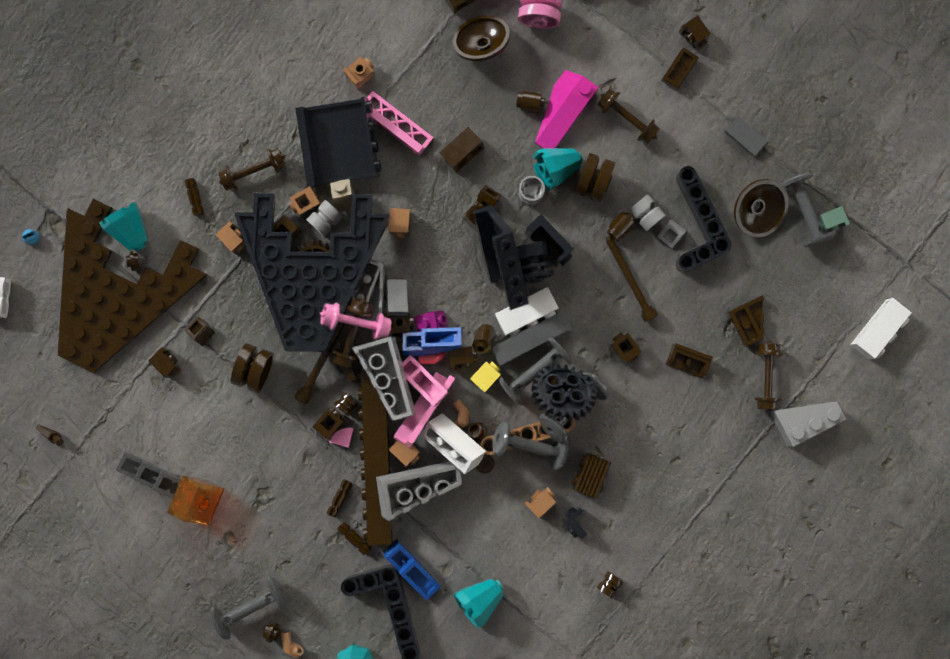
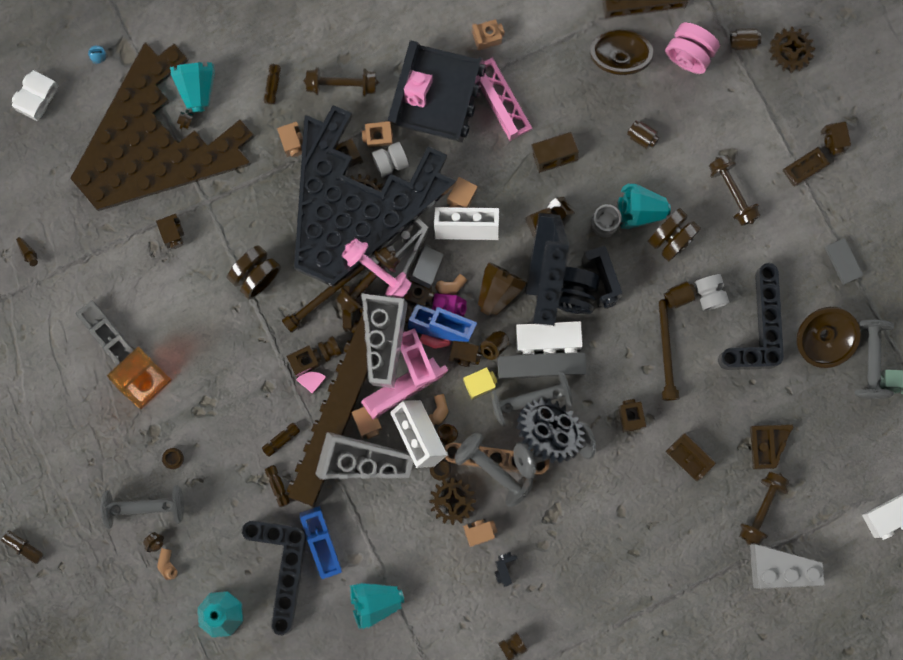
camera: 20 degrees right, 5 degrees down
(199, 331) = (218, 215): dark brown slope -> none
(255, 554) = (172, 458): none -> dark brown plate
(320, 146) = (417, 88): none -> bright pink bracket
(342, 194) = (417, 143): dark tan brick -> none
(414, 245) = (466, 223): none -> white brick
(426, 305) = (451, 288): none -> medium nougat arm
(466, 289) = (498, 289): none -> dark brown cone
(515, 482) = (441, 501): none -> dark brown gear
(566, 103) = (678, 152): dark pink wedge -> none
(591, 475) = (542, 528): dark brown brick -> none
(671, 233) = (727, 324): light grey slope -> none

